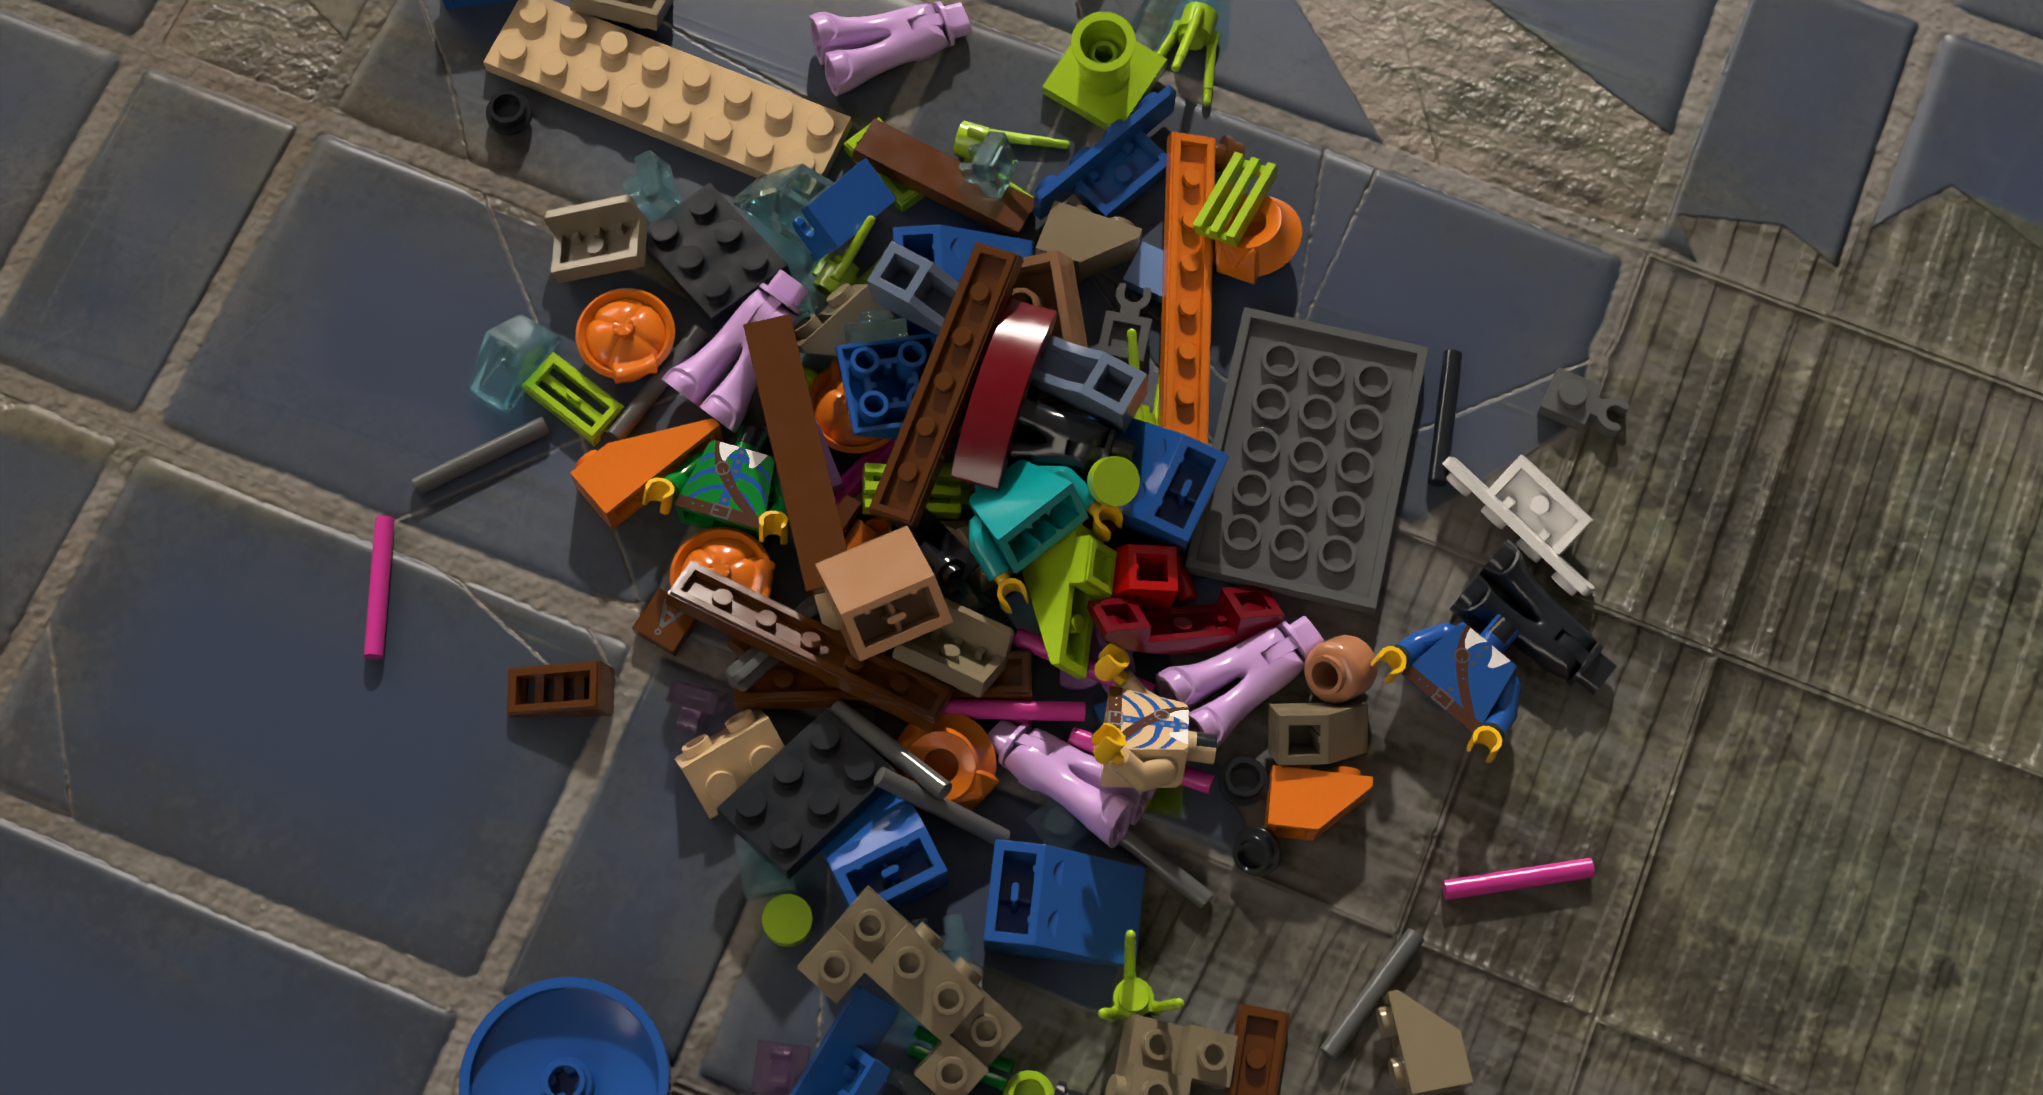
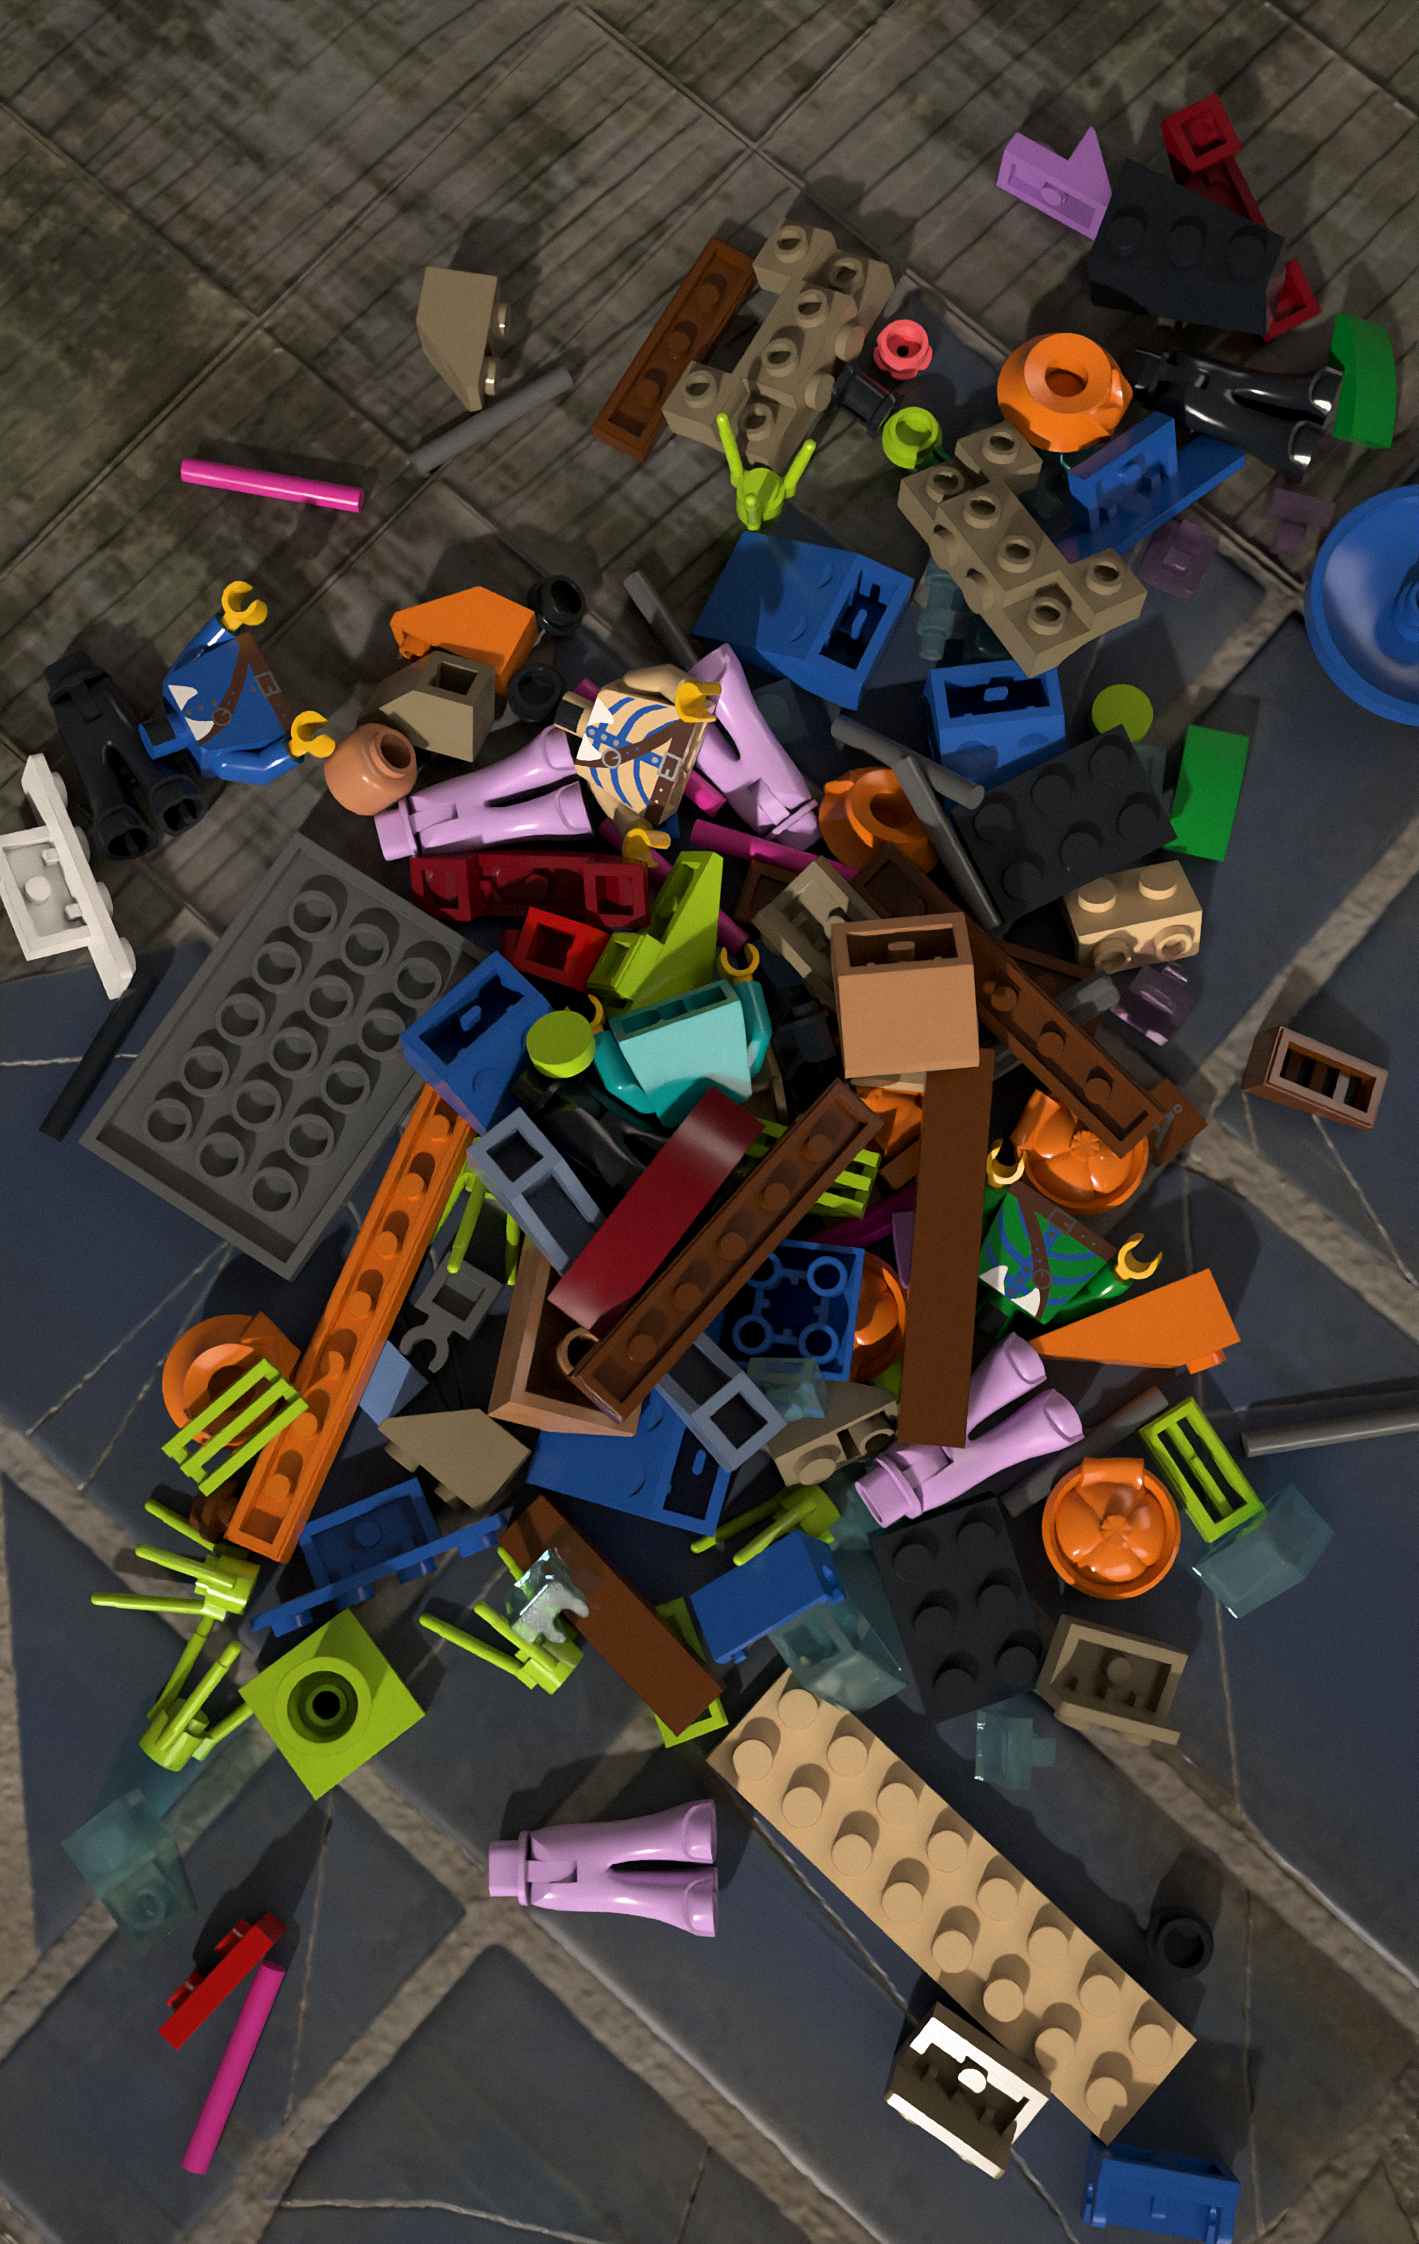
camera: 160 degrees left, 10 degrees up
(704, 878) = (1206, 791): none -> green slope
(1205, 115) = (223, 1581): none -> lime plant

